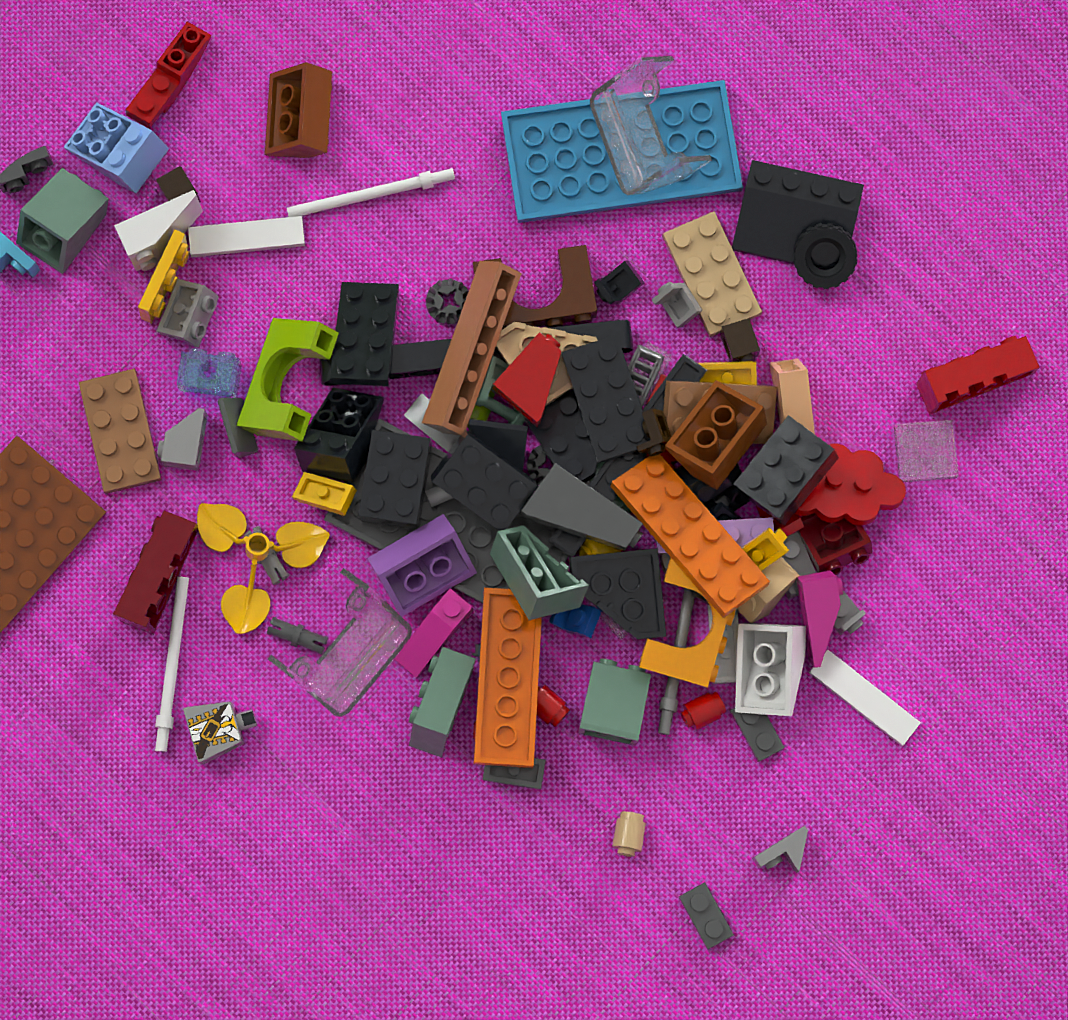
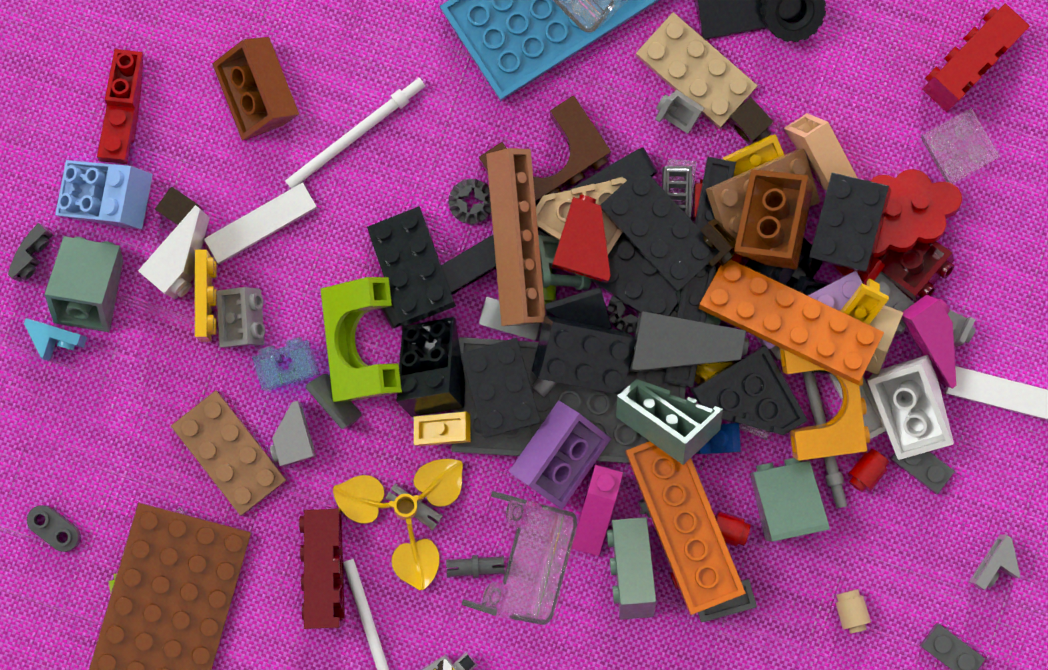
camera: 20 degrees left, 5 degrees up
(618, 284) = (618, 117): black bracket -> none

